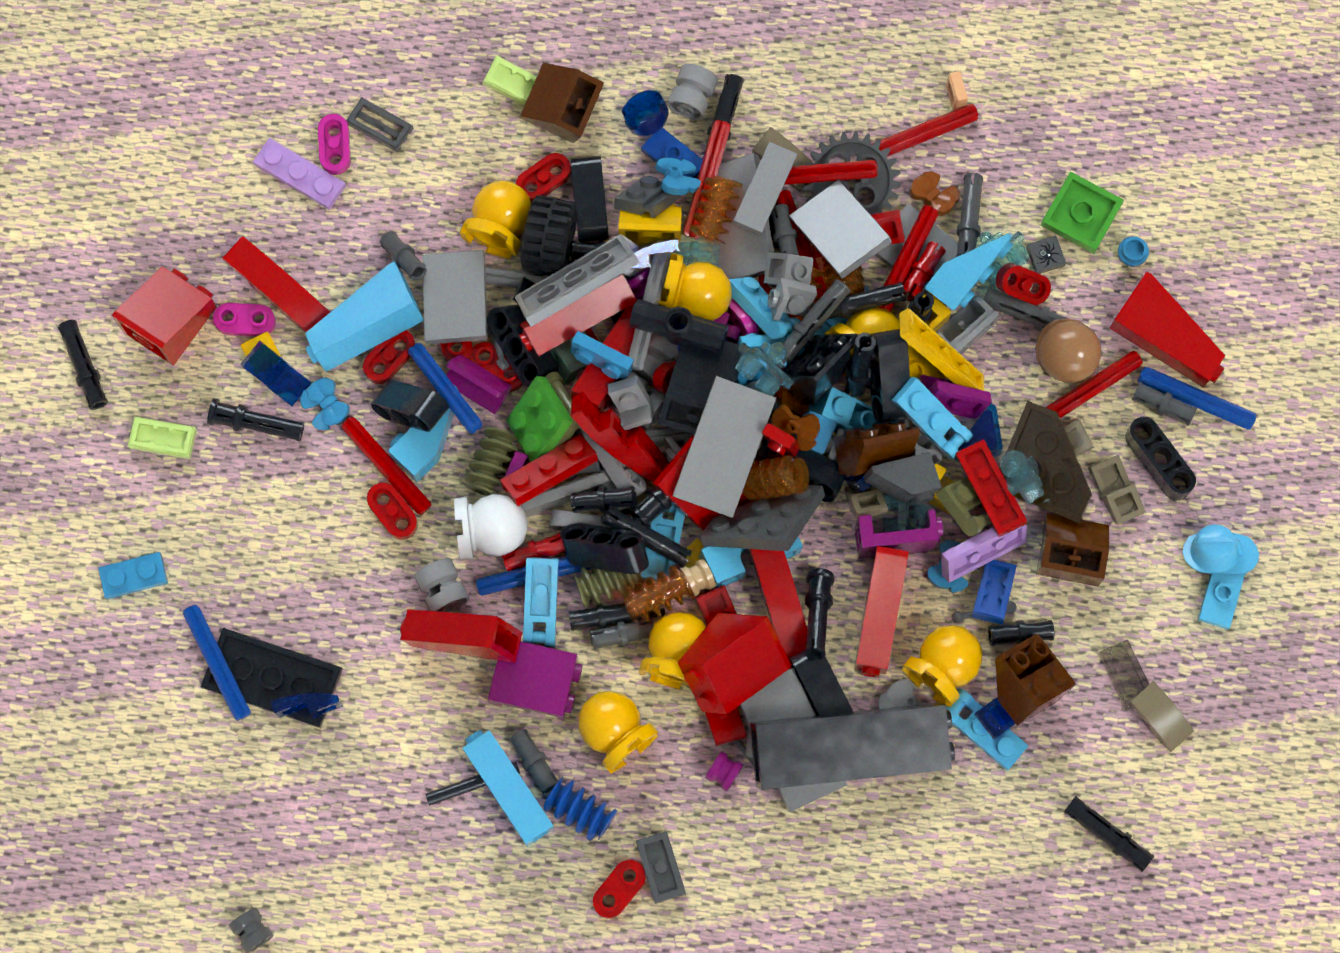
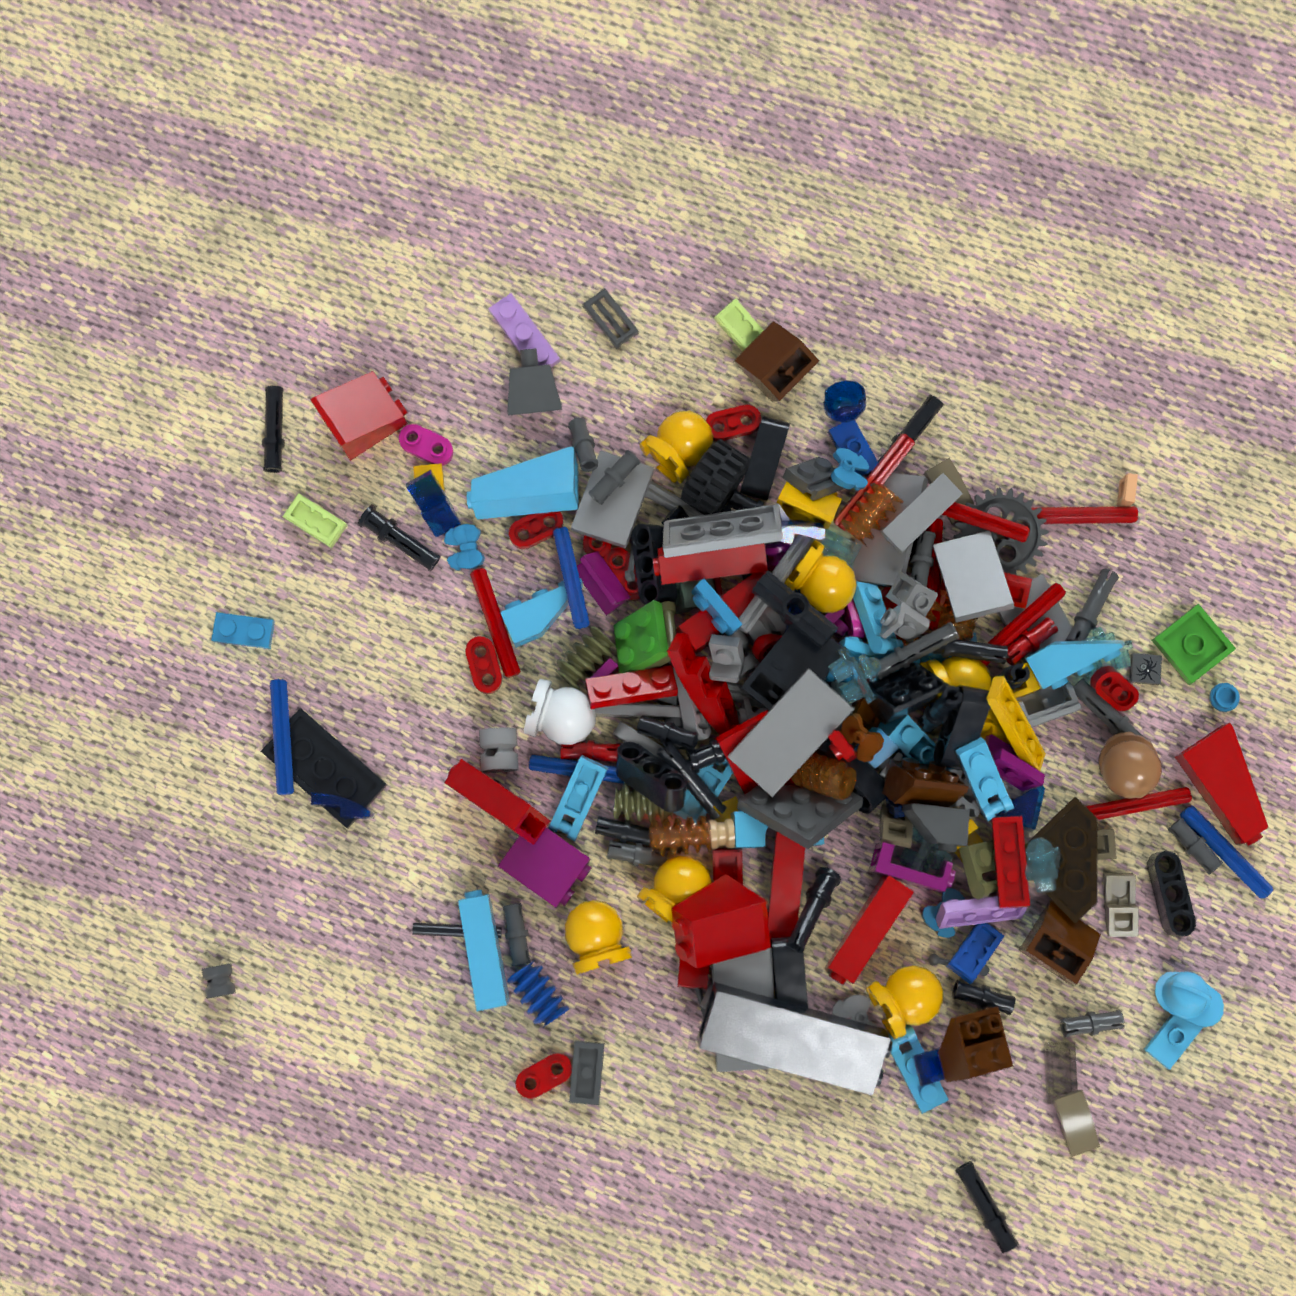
camera: 20 degrees right, 5 degrees up
(275, 284) = (463, 426): red slope -> none
(329, 219) = (532, 386): none -> dark grey torso
(334, 146) = (564, 322): dark pink plate -> none
(409, 405) = (534, 580): black beam -> none
(447, 273) = (614, 477): none -> dark grey pin
(693, 88) = (897, 394): light grey wheel -> none
(724, 771) = (675, 1012): magenta wheel -> none
(925, 189) = (1062, 567): dark orange piece -> none
(1136, 614) = (1092, 1023): none -> dark grey pin

